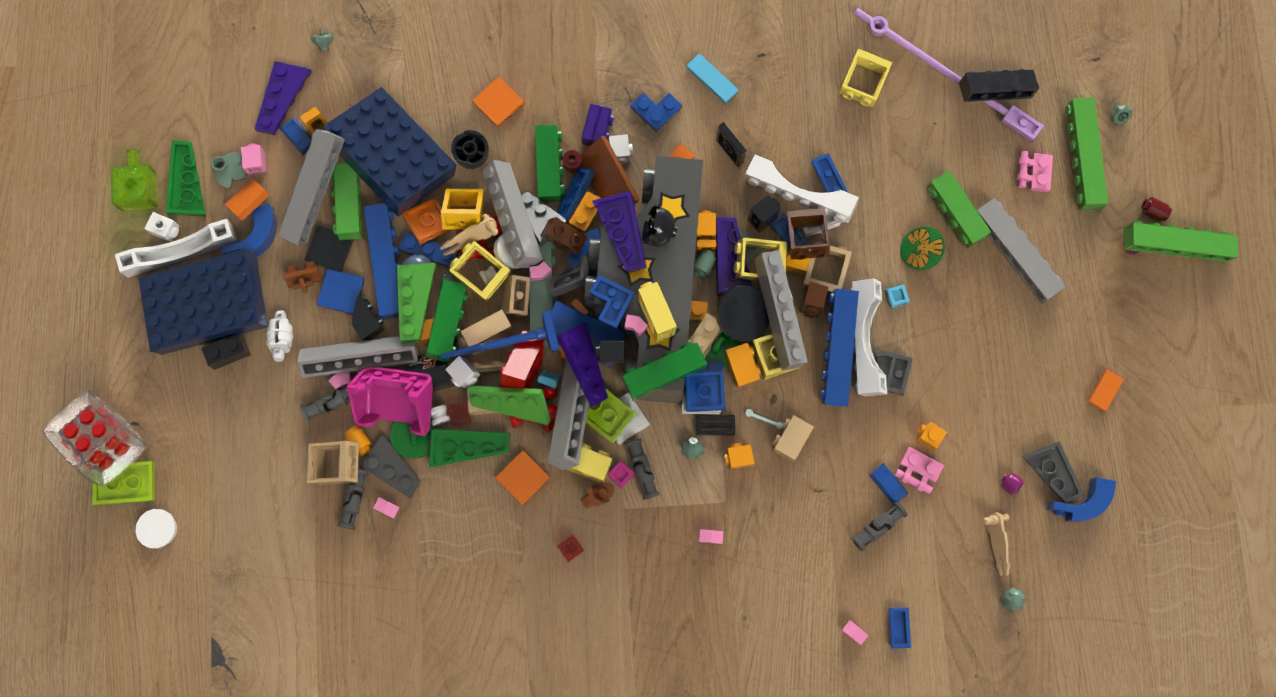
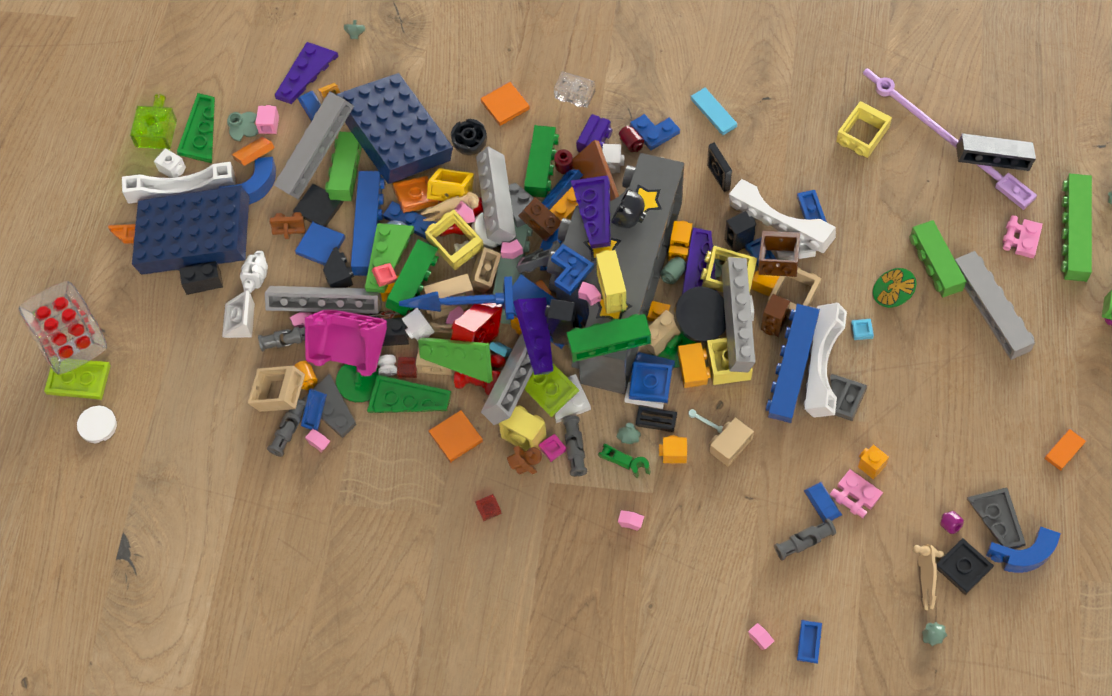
camera: 20 degrees right, 15 degrees down
(132, 311) = (123, 232): none -> orange tile
(275, 387) = (239, 316): none -> white slope
(375, 478) = (313, 410): none -> blue tile
(417, 324) = (384, 274): none -> coral tile
(485, 239) = (465, 212): none -> bright pink piece
(497, 353) = (454, 314): none -> bright pink piece
(567, 76) = (574, 89): none -> clear brick
(635, 124) = (631, 139): none -> dark red brick
(692, 475) = (624, 460): none -> green piece
(1029, 525) = (964, 566): none -> black tile

